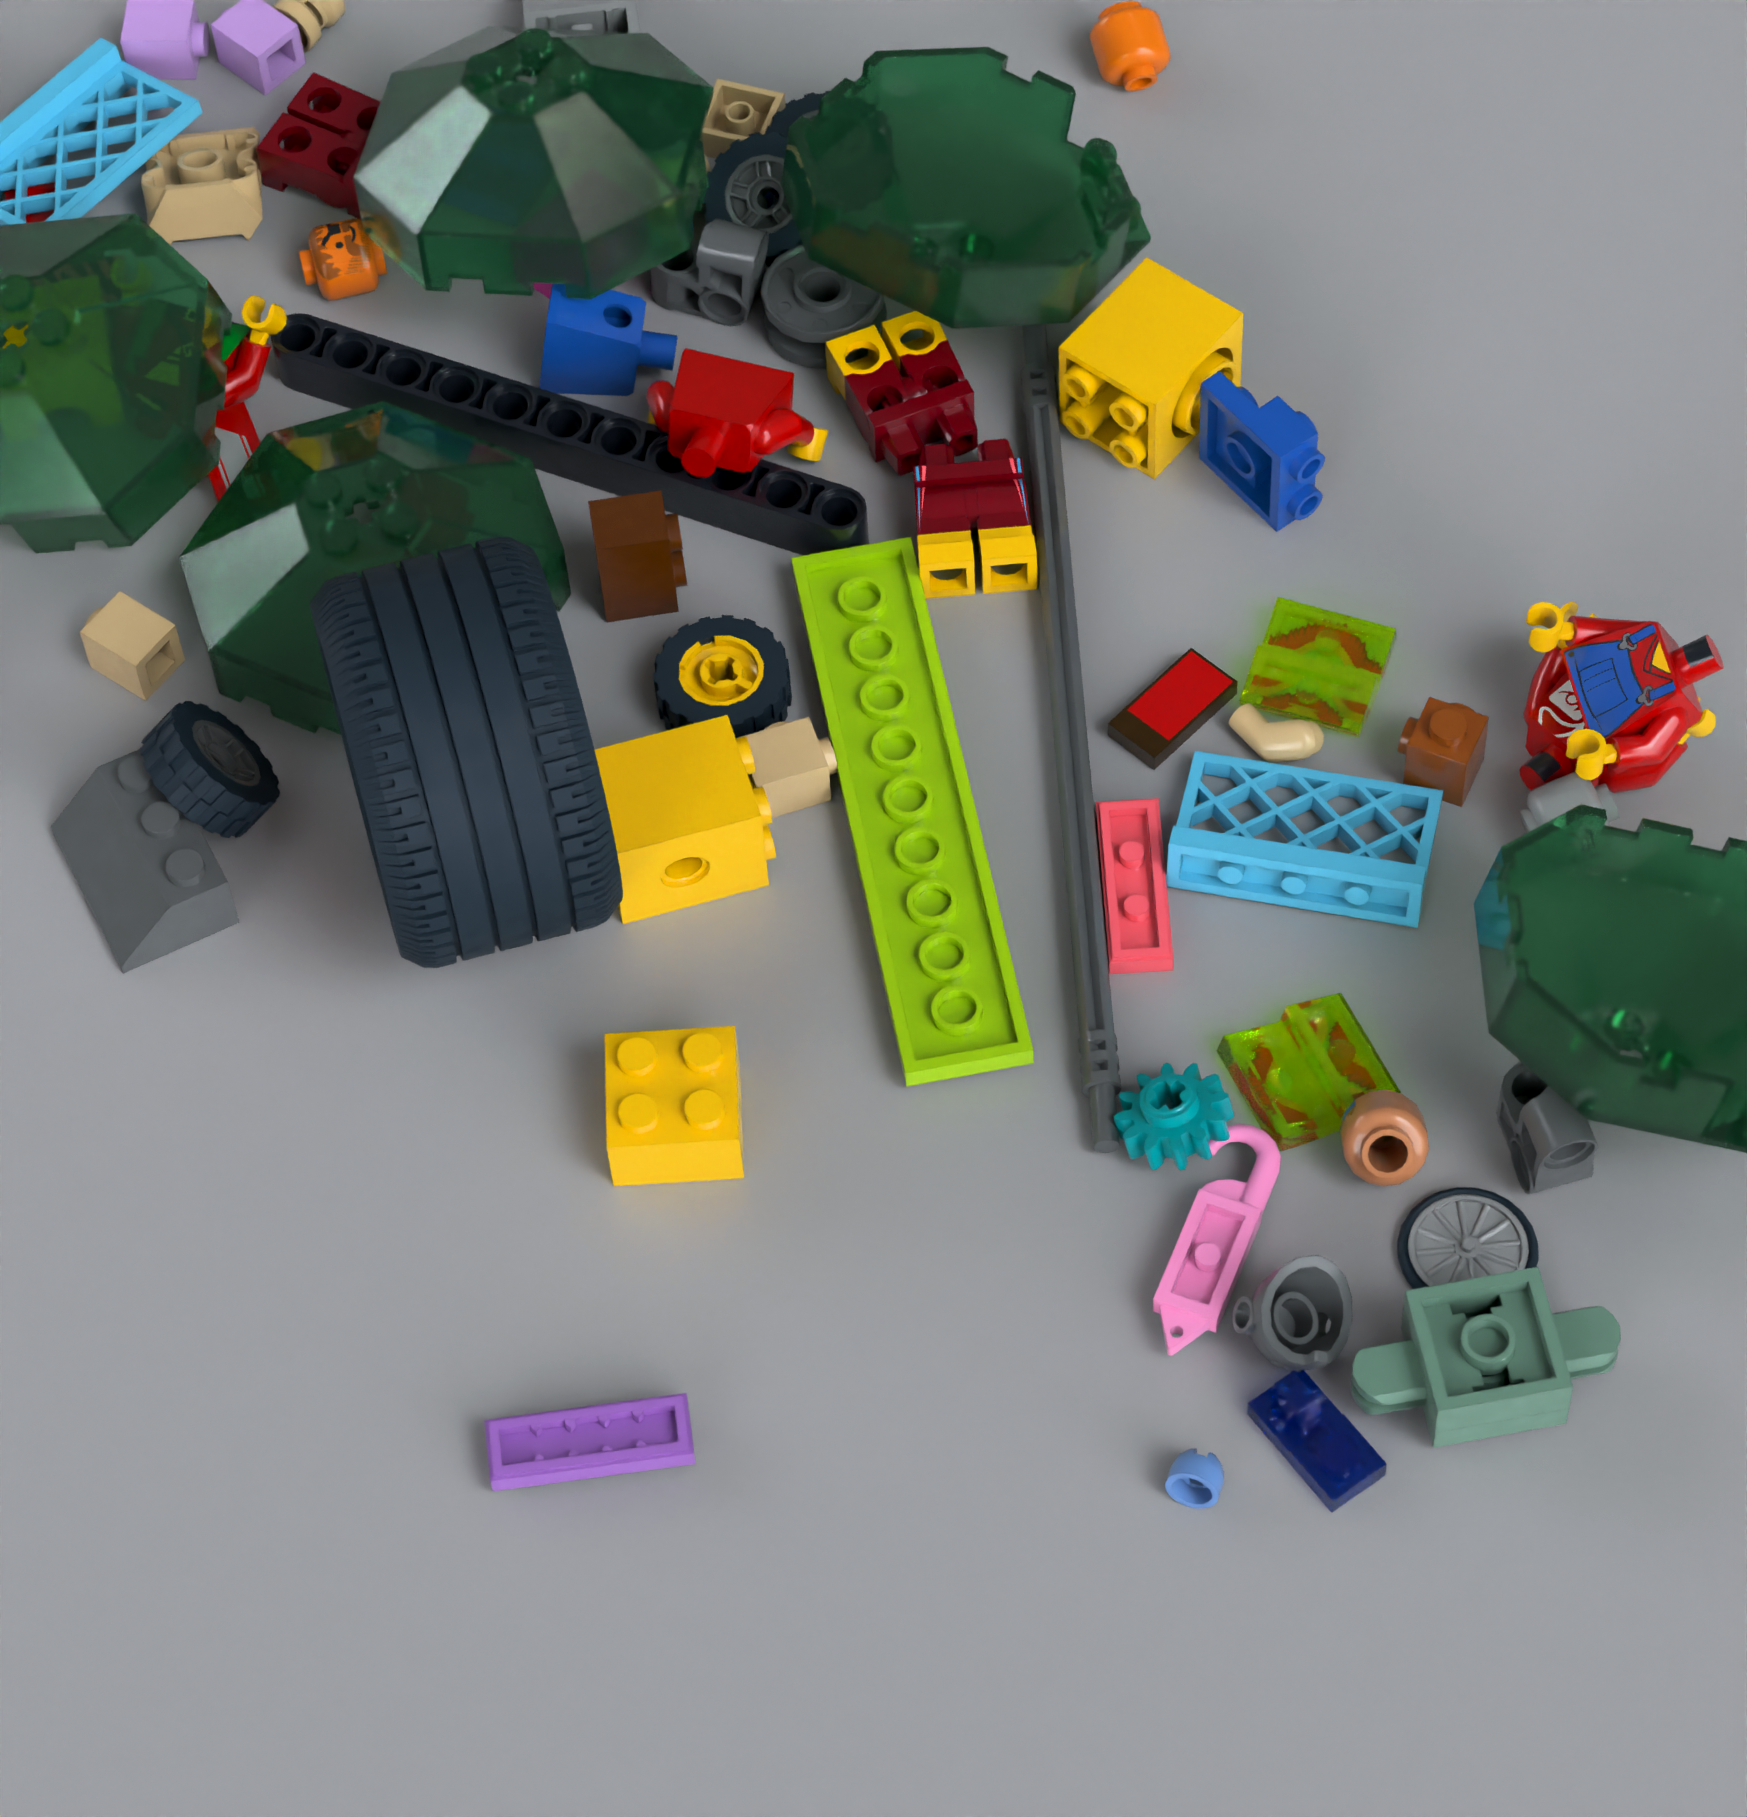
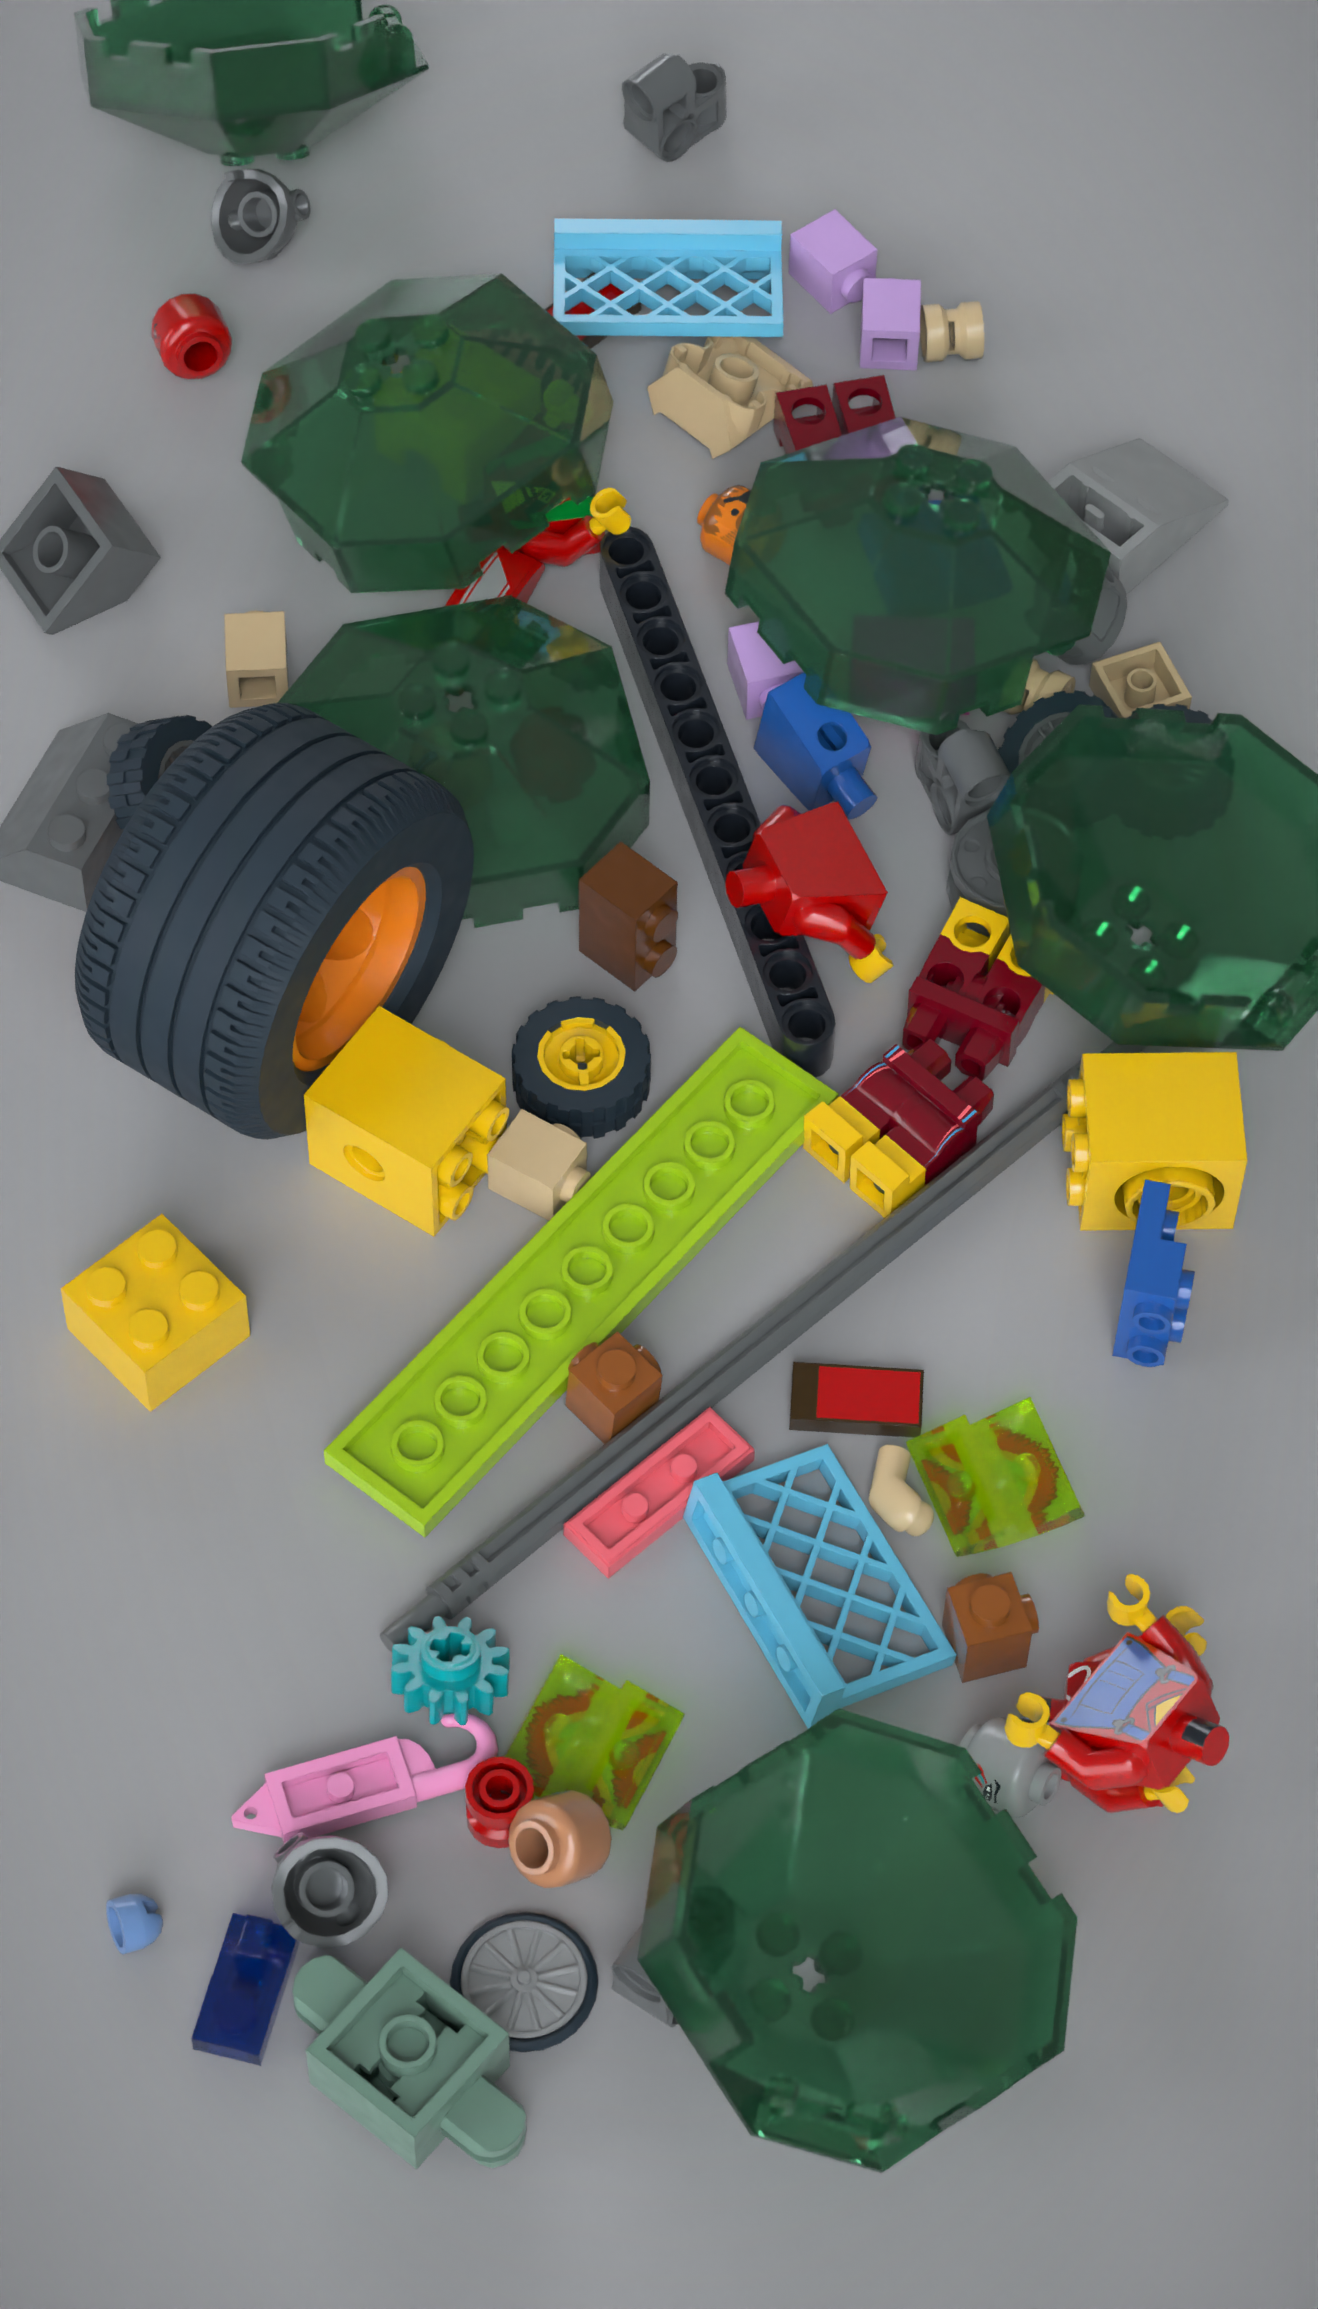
camera: 45 degrees right, 0 degrees up
(487, 329) = (755, 668): none -> lavender brick
(1029, 848) = (612, 1385): none -> dark orange brick
(1316, 1174) = (491, 1816): none -> red wheel

